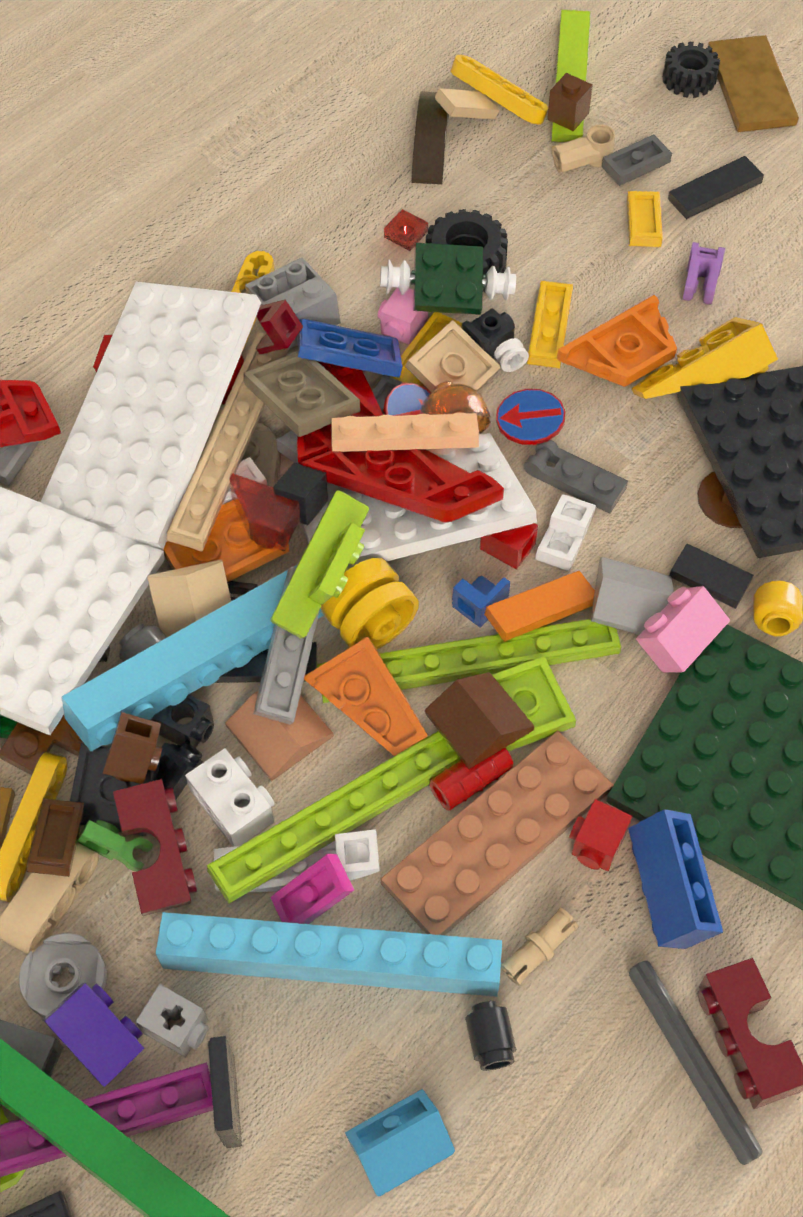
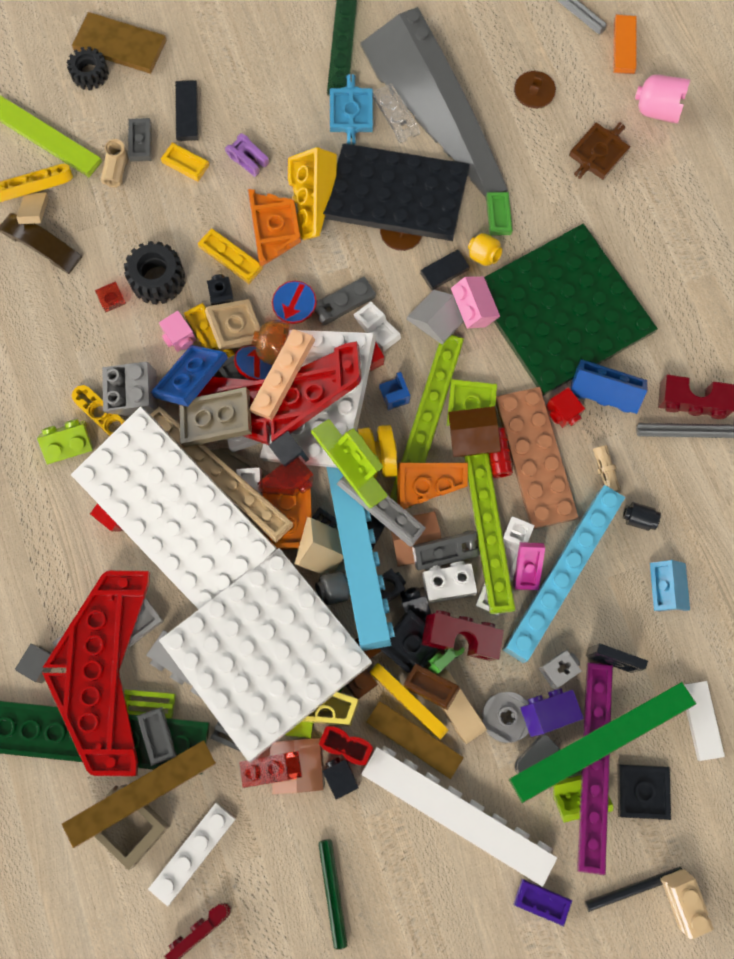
camera: 65 degrees left, 15 degrees up
(133, 749) = (410, 620): reddish brown brick -> none
(184, 268) = (64, 441): none -> lime bracket
(274, 765) = (445, 550): none -> dark grey plate
(279, 324) = (158, 406): dark red panel -> none
(448, 279) = (177, 293): dark green plate -> none
(511, 355) = (243, 289): white bush -> none
(540, 605) = (419, 364): orange tile -> none
(569, 101) = (76, 149): reddish brown brick -> none

